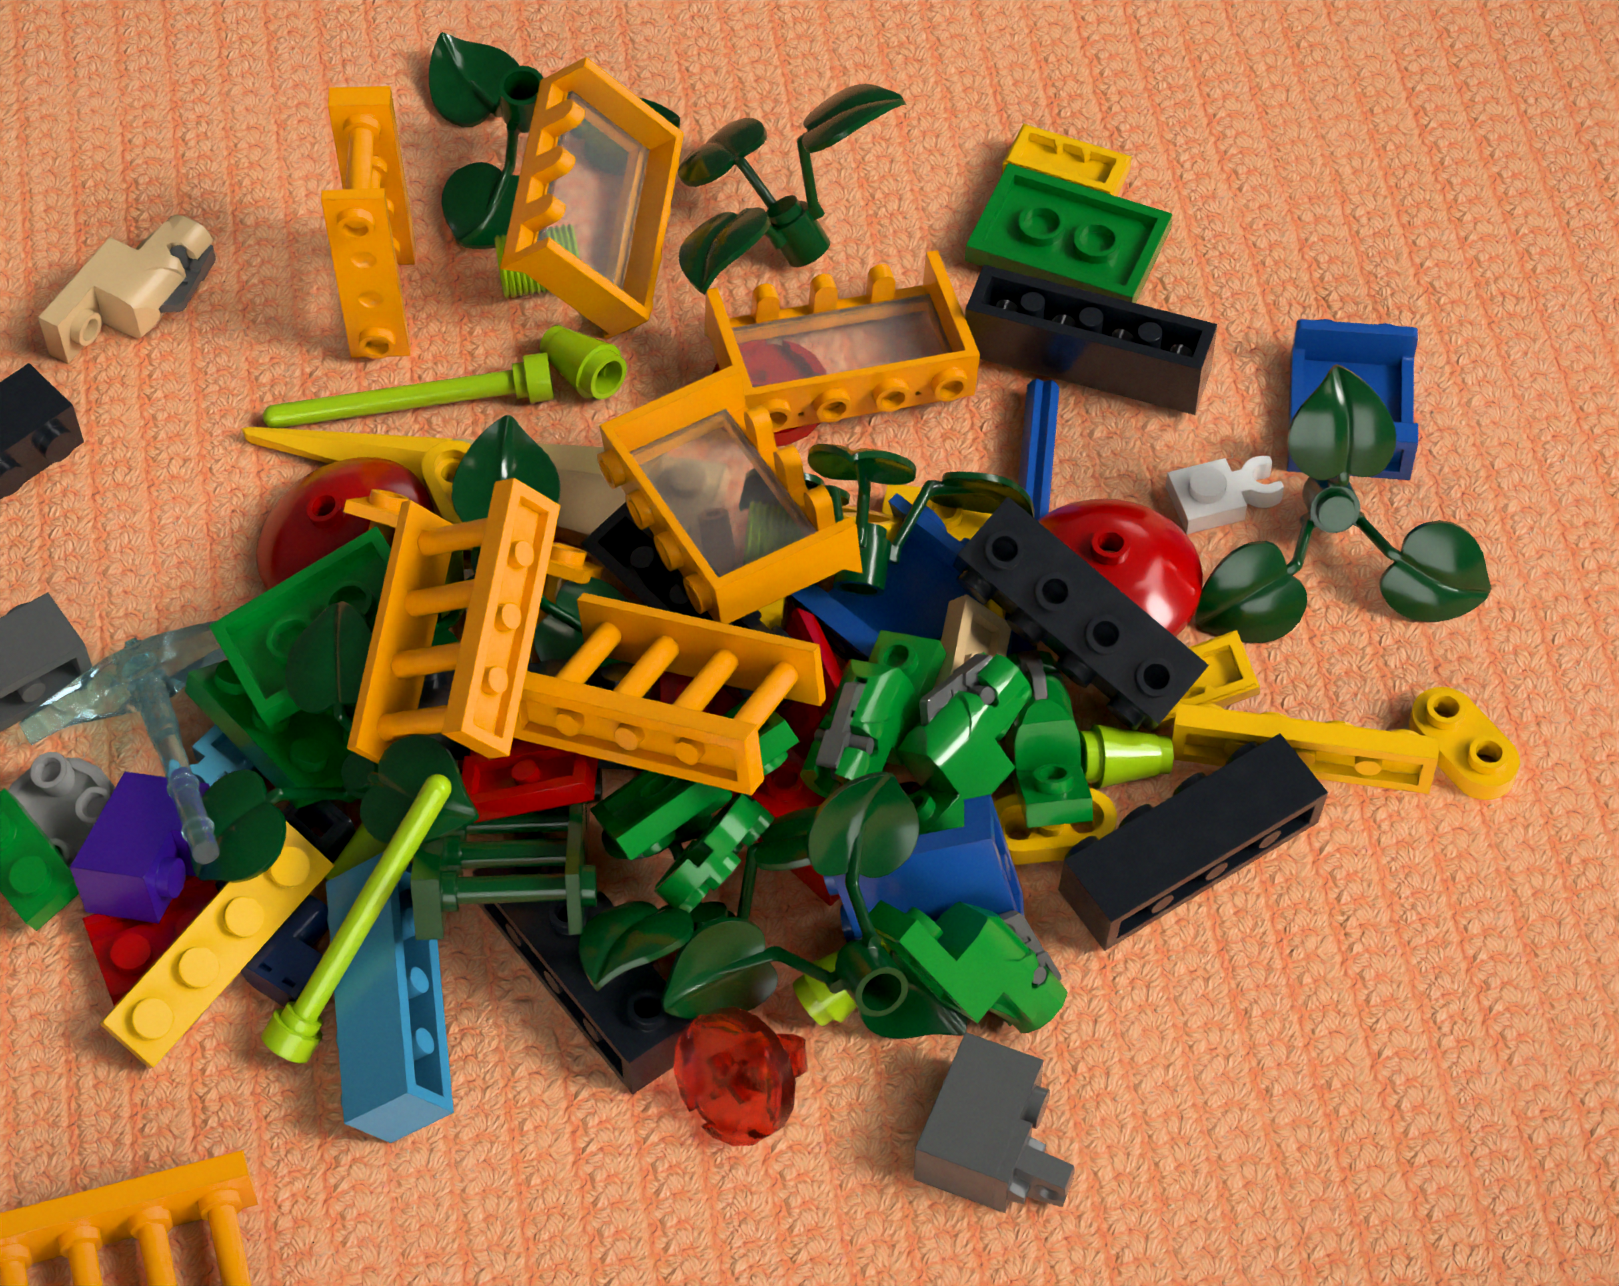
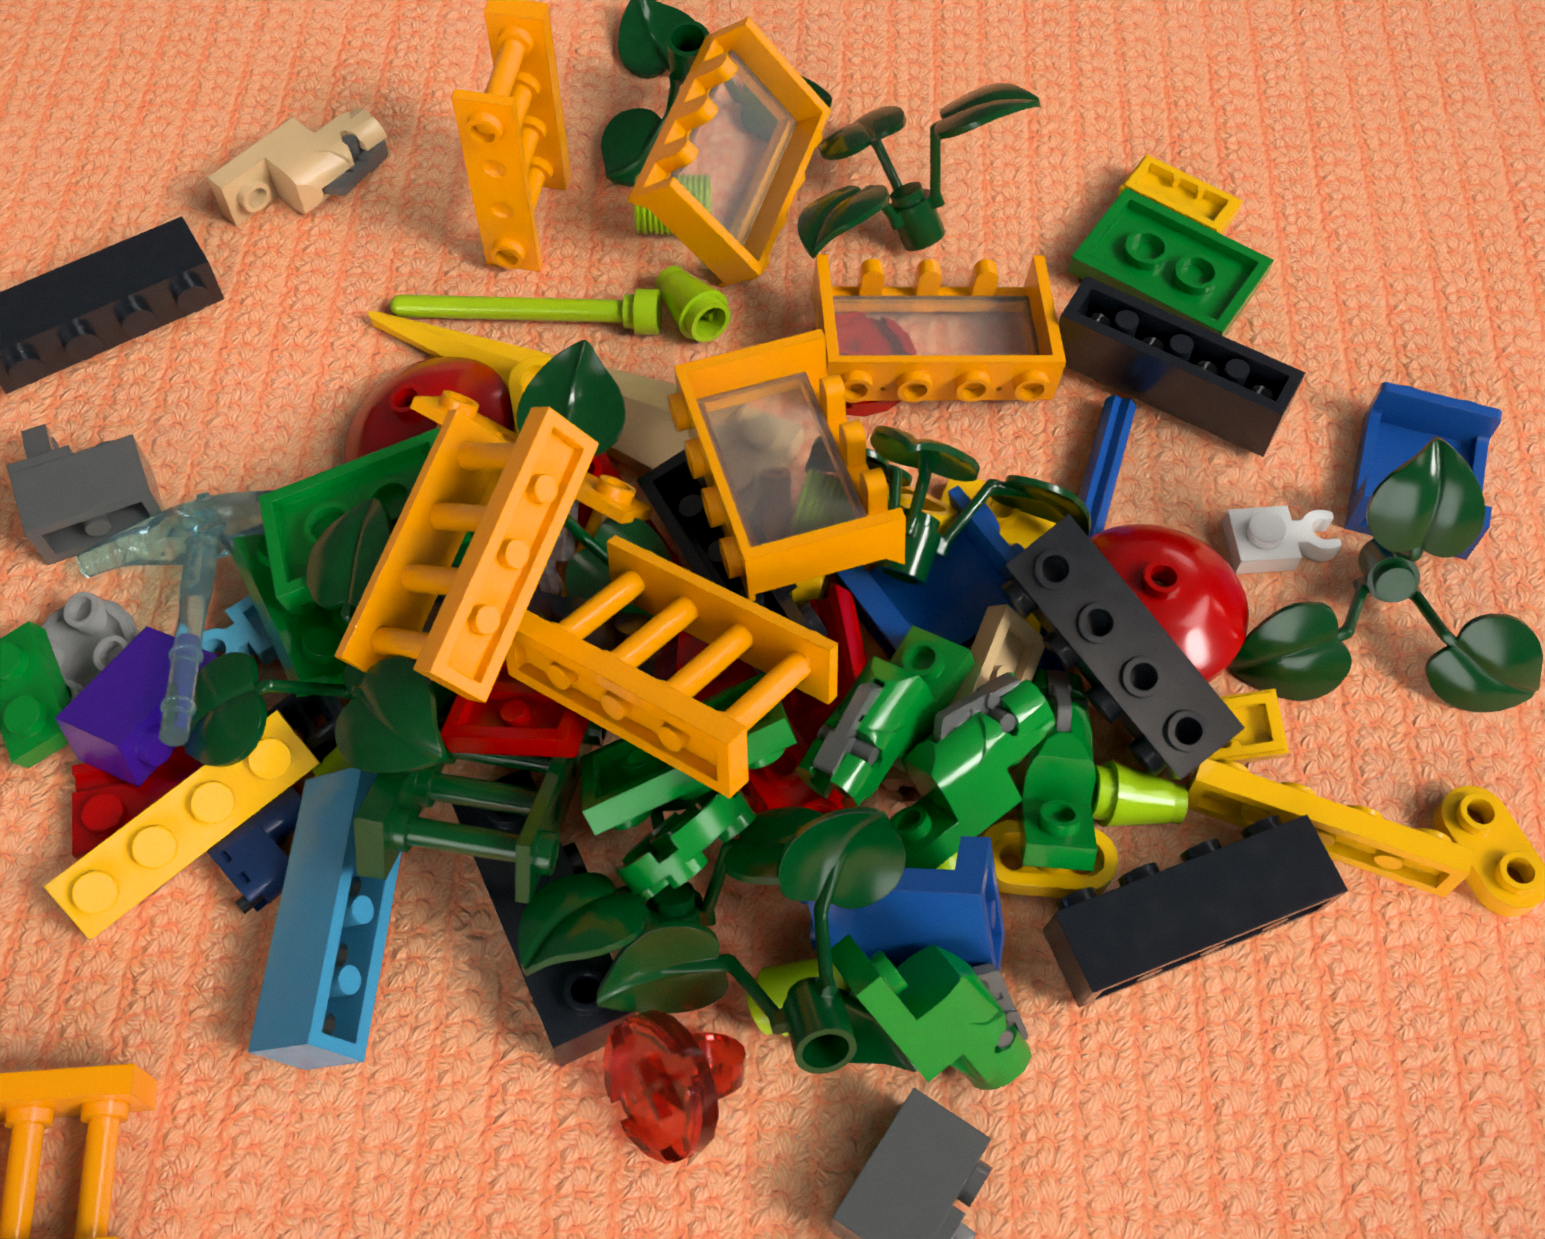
camera: 10 degrees right, 5 degrees up
(296, 1028) = (240, 927): lime piece -> none

